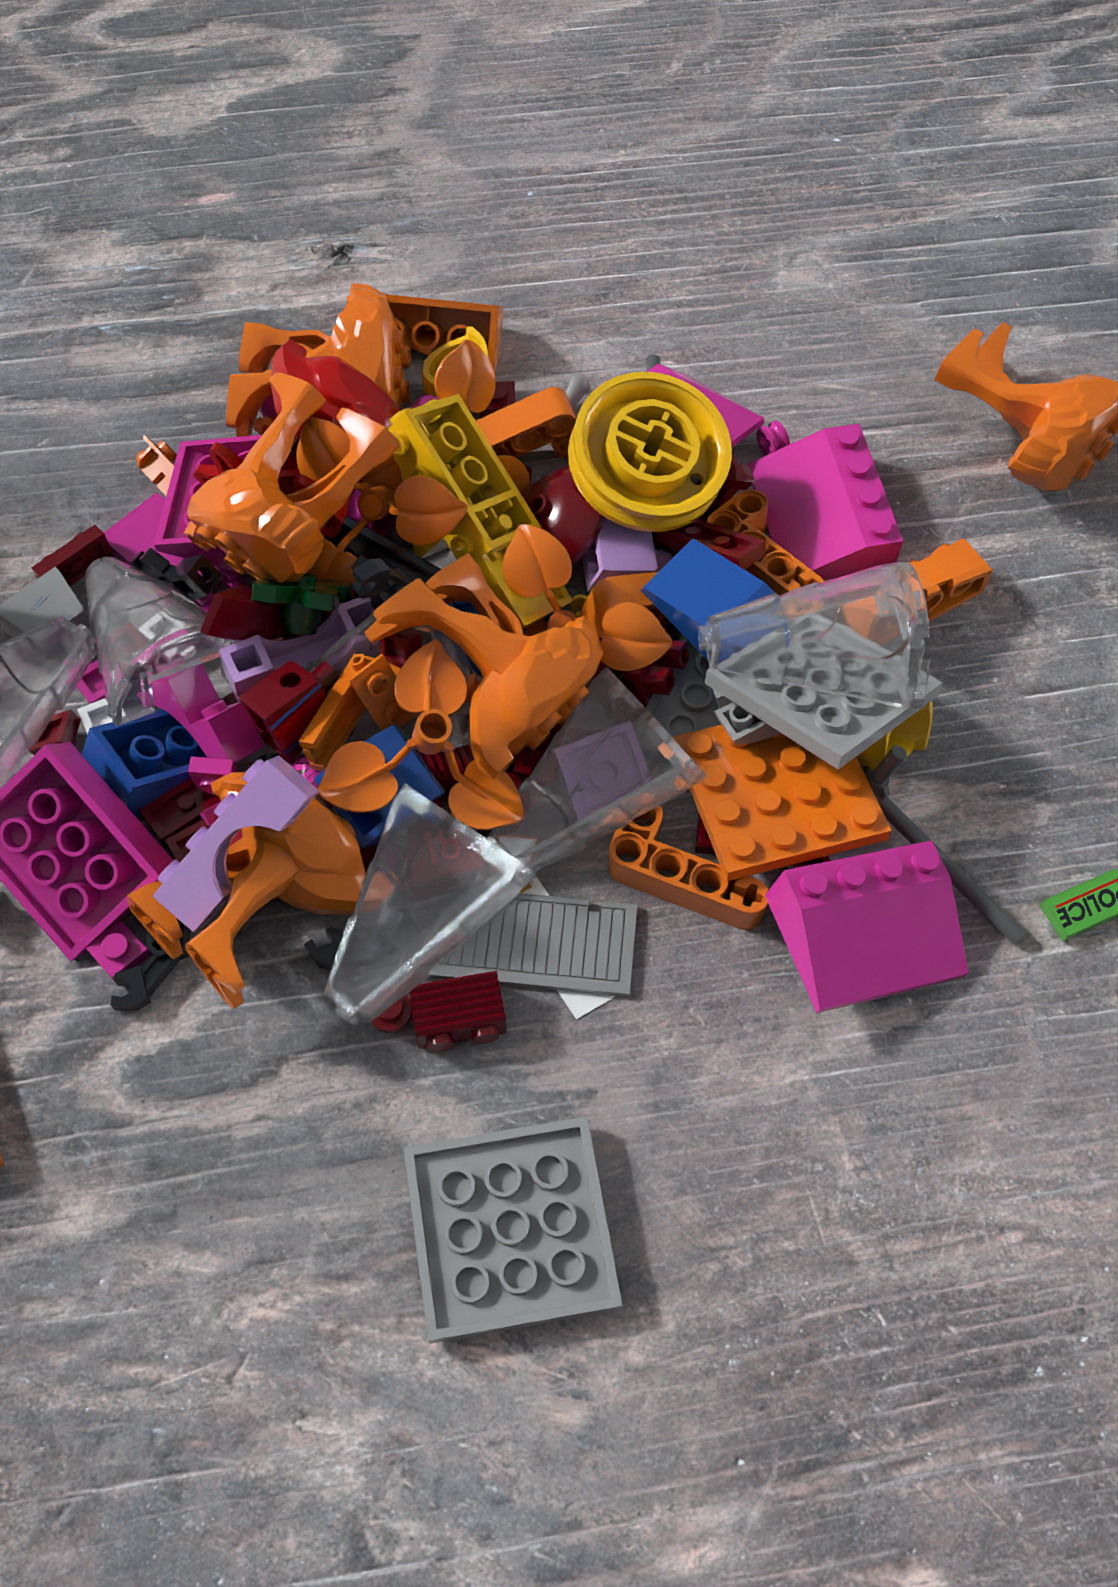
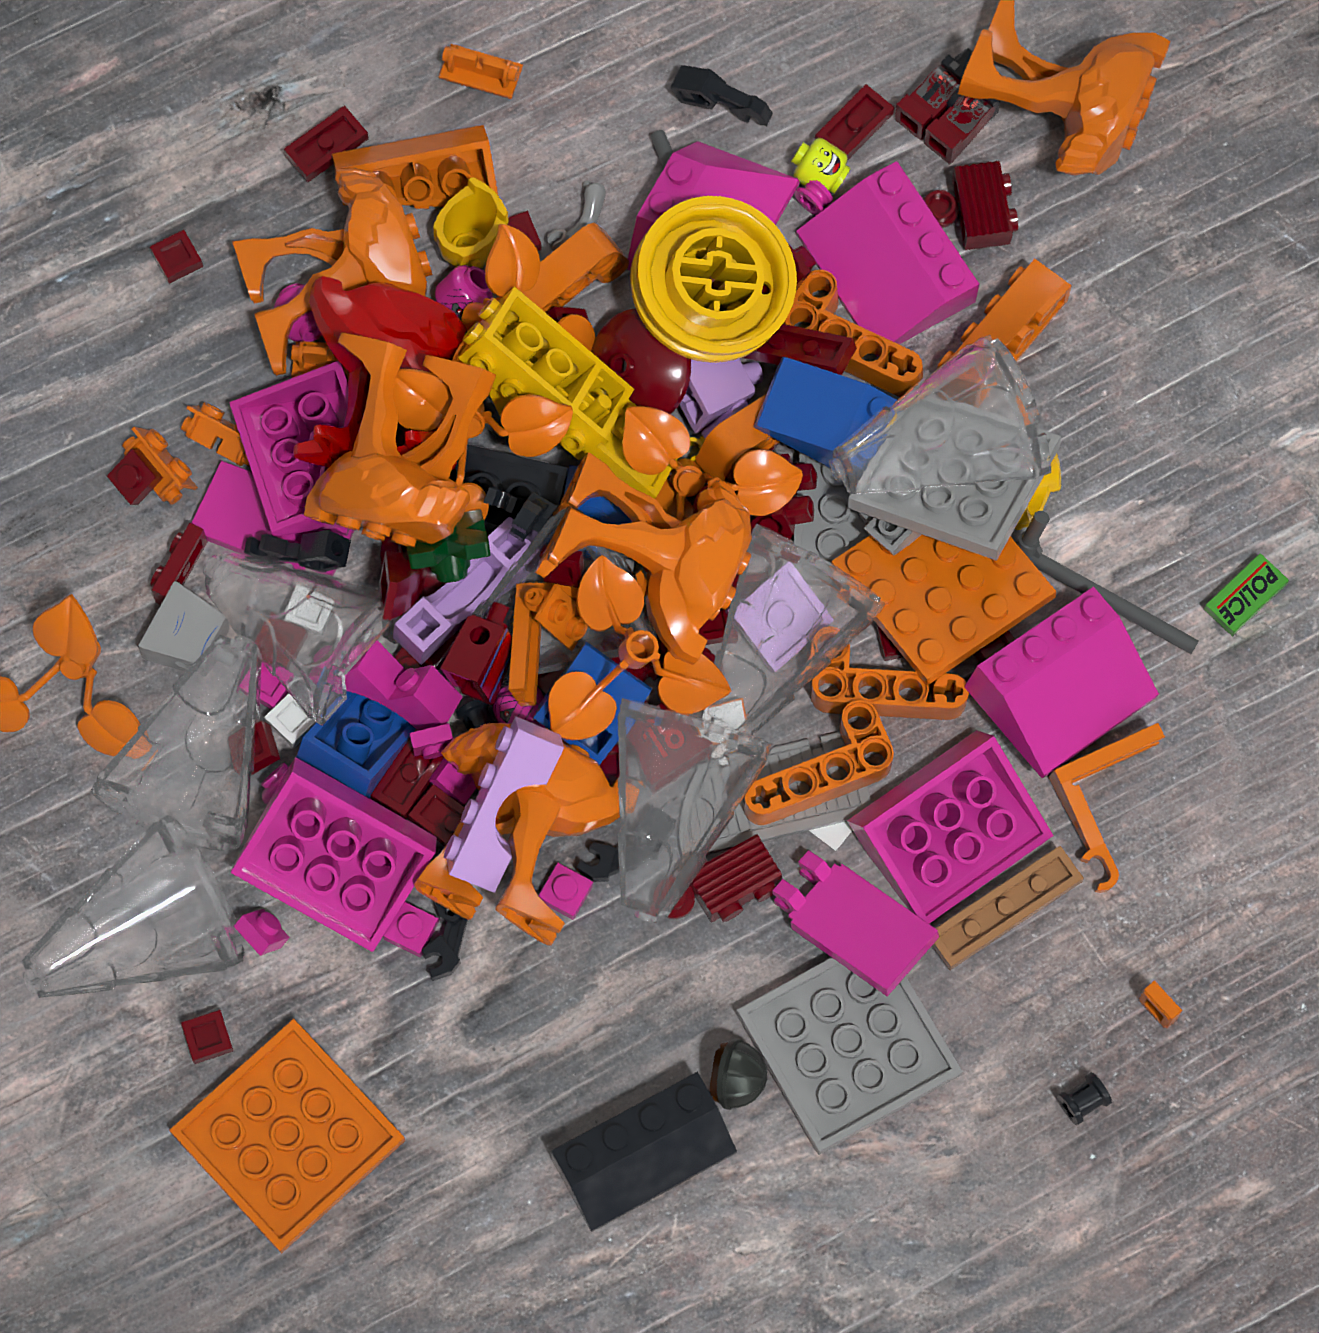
camera: 20 degrees left, 10 degrees up
(75, 482) = (134, 476): none -> dark red plate
(102, 479) = (173, 470): none -> orange hinge
(201, 332) = (176, 256): none -> dark red plate
(237, 1269) = (643, 1151): none -> black slope
(285, 966) = (566, 891): none -> dark pink plate
(371, 1218) = (737, 1074): none -> pearl dark grey piece
(383, 278) = (313, 151): none -> dark red plate
(522, 274) = (480, 70): none -> orange hinge
(565, 1100) = (855, 923): none -> dark pink tile
(583, 927) = (814, 773): none -> orange beam
(704, 1035) = (951, 826): none -> dark pink slope
(706, 330) = (705, 88): none -> black piece
(732, 1138) = (1006, 907): none -> medium nougat plate
(751, 1388) = (1084, 1098): none -> black bush
(791, 412) = (821, 163): none -> neon yellow head
(830, 396) = (857, 121): none -> dark red plate
(841, 1030) = (1075, 802): none -> orange hinge
(872, 1308) = (1160, 1004): none -> orange tile
(891, 479) = (943, 207): none -> dark red plate
(921, 407) = (944, 114): none -> dark red hips
(928, 488) = (984, 205): none -> dark red brick

